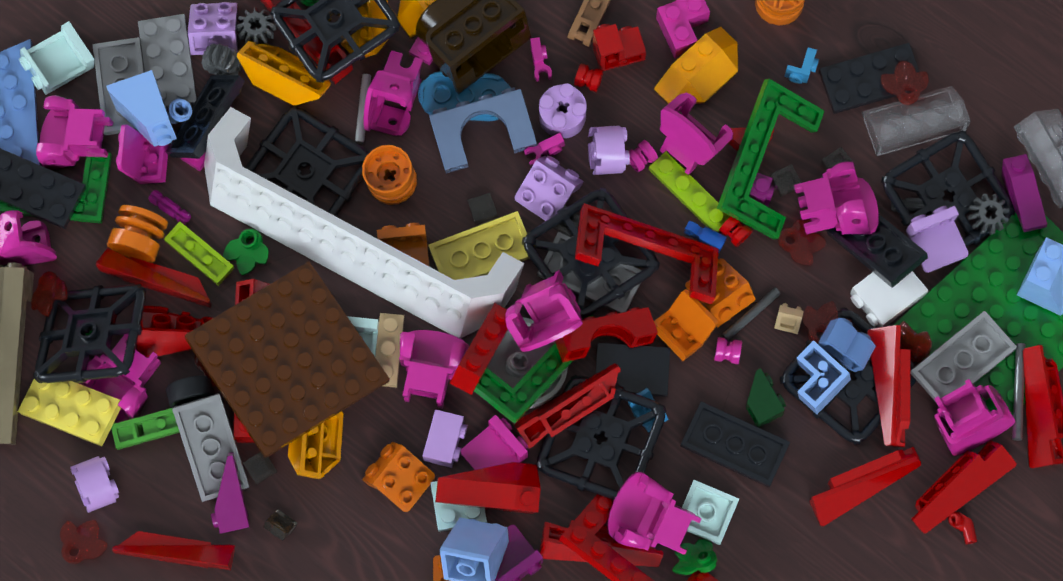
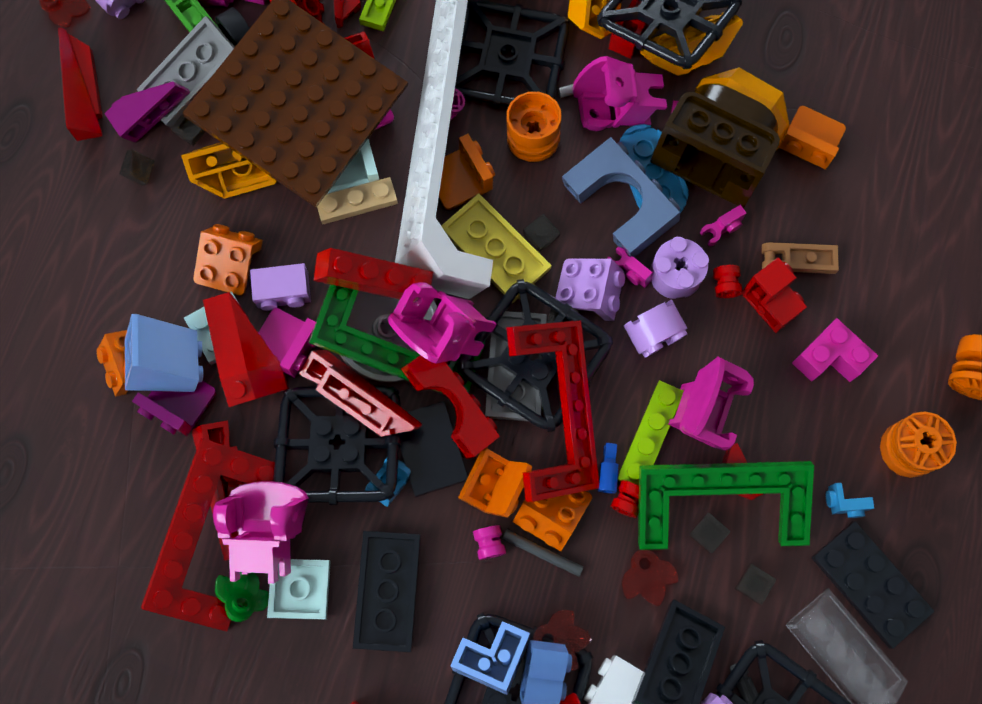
camera: 65 degrees right, 0 degrees up
(245, 254) = (404, 34): green plate -> none
(429, 362) = (362, 232): dark pink piece -> none
(642, 155) = (661, 364): dark pink wheel -> none
(701, 68) = (795, 393): light orange wedge -> none
(762, 189) = (685, 510): magenta brick -> none
(762, 402) = (446, 601): dark green slope -> none
(789, 319) = (552, 596): tan tile -> none
(844, 205) = (707, 613): dark pink piece -> none
(905, 79) = (889, 622): clear red plate -> none

